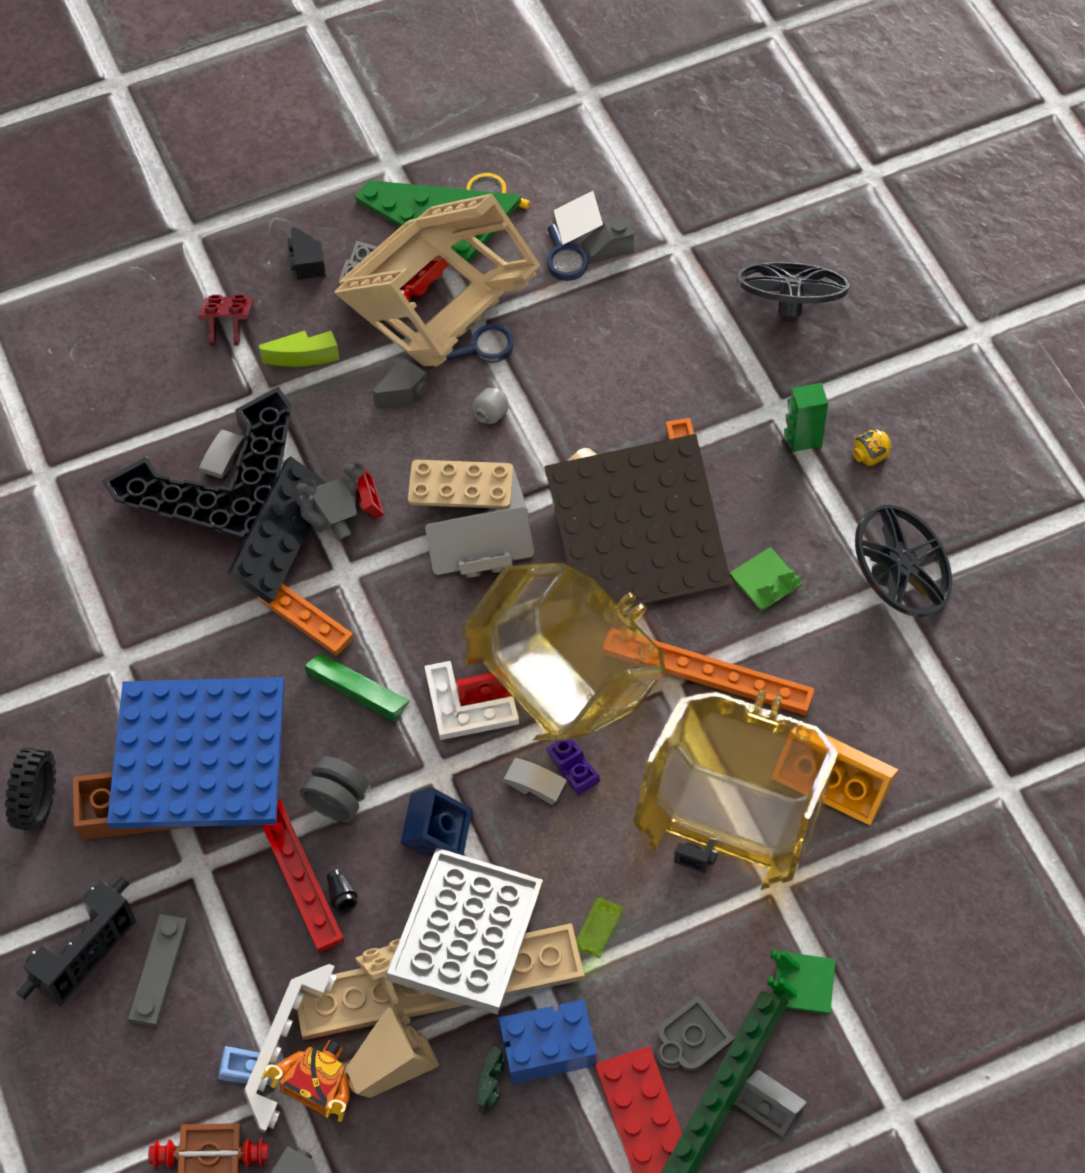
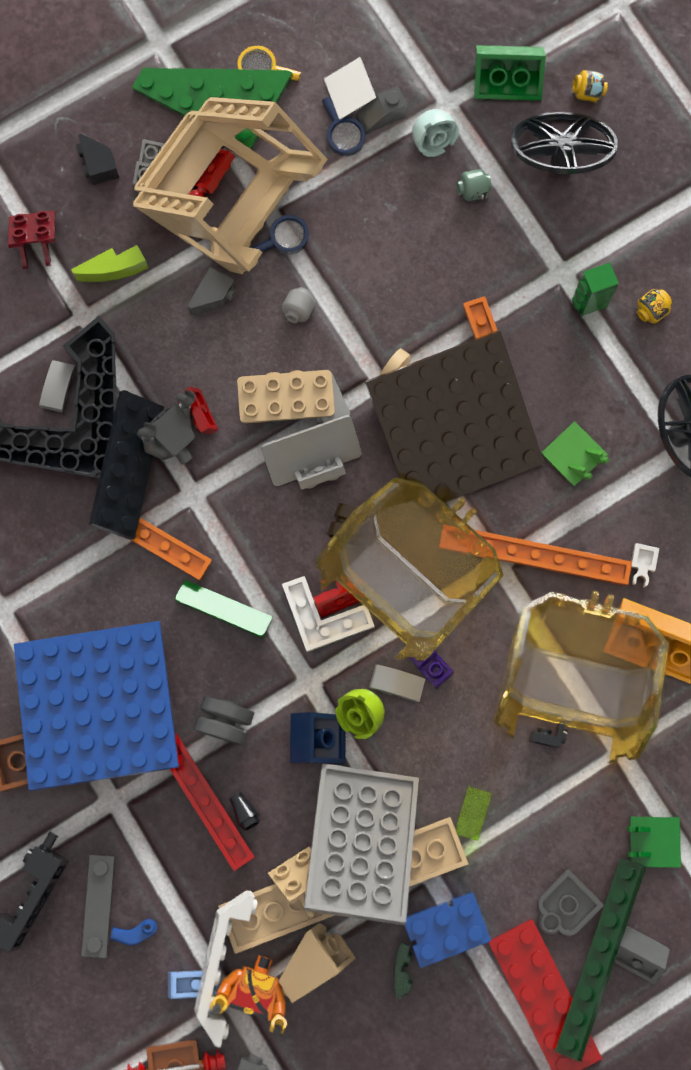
camera: 10 degrees left, 20 degrees up
(193, 1005) = (135, 935): none -> blue arm
(487, 801) = (360, 713): none -> lime cylinder
(659, 264) = (434, 132): none -> light aqua cylinder
(694, 317) = (474, 185): none -> sand green head
(746, 221) = (509, 72): none -> green slope
(828, 692) = (644, 560): none -> white plate
(829, 241) = (589, 86): none -> head

